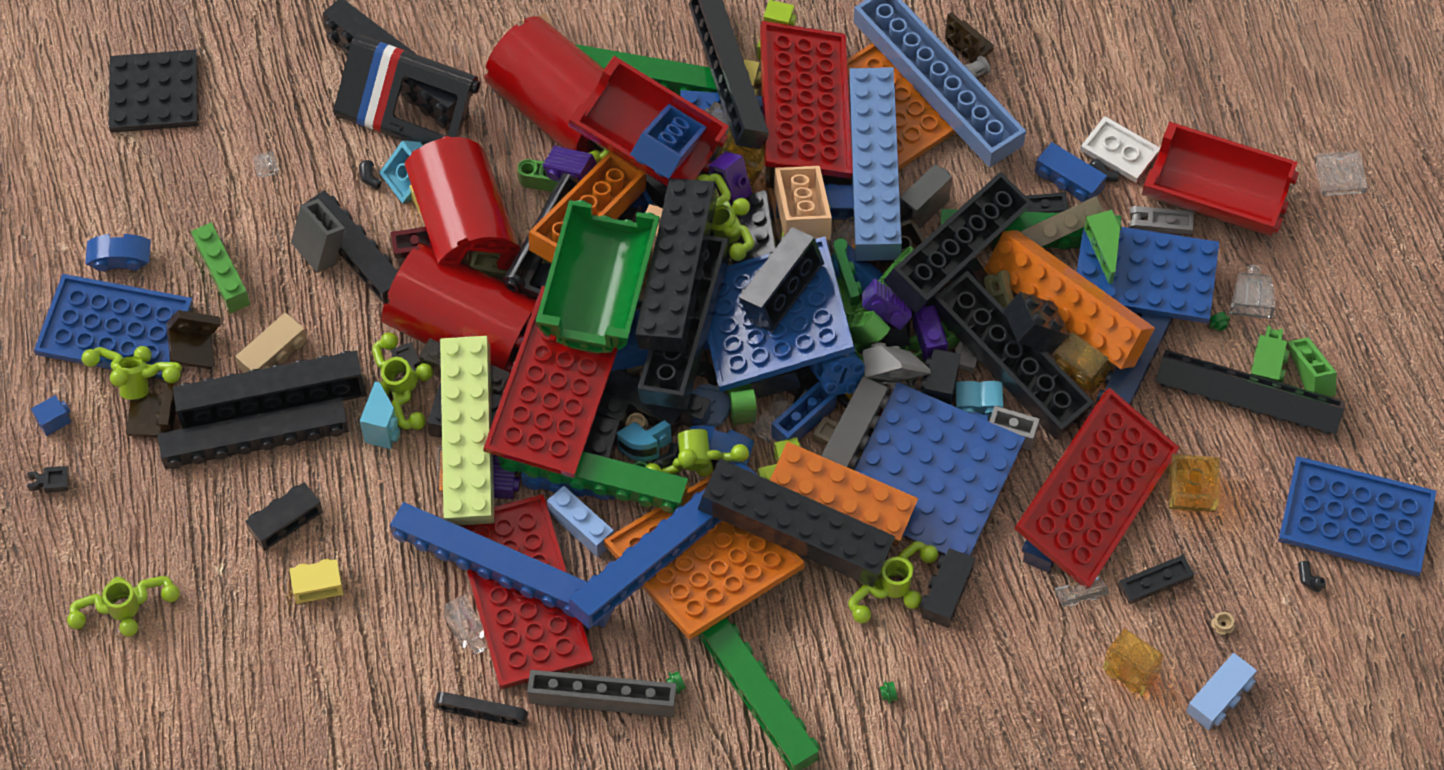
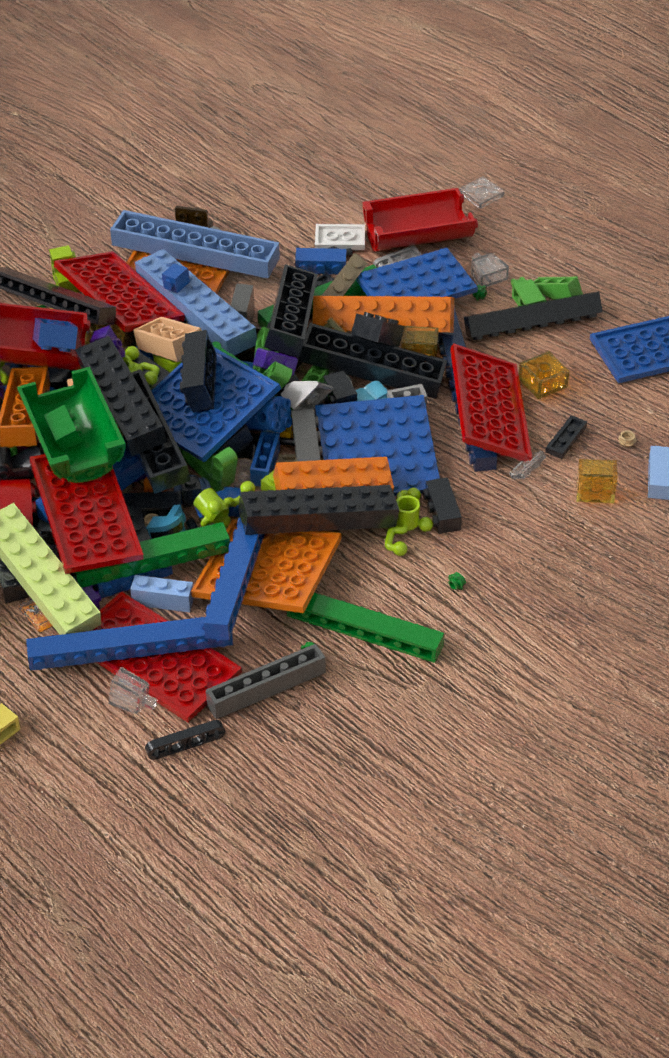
camera: 35 degrees left, 15 degrees down
(590, 274) = (63, 427): none -> green brick
(864, 125) = (175, 278): none -> blue brick
(929, 331) = (310, 369): dark purple brick -> none
(1103, 234) = (381, 273): bright green slope -> none
(1313, 583) = (654, 393): black arm -> none

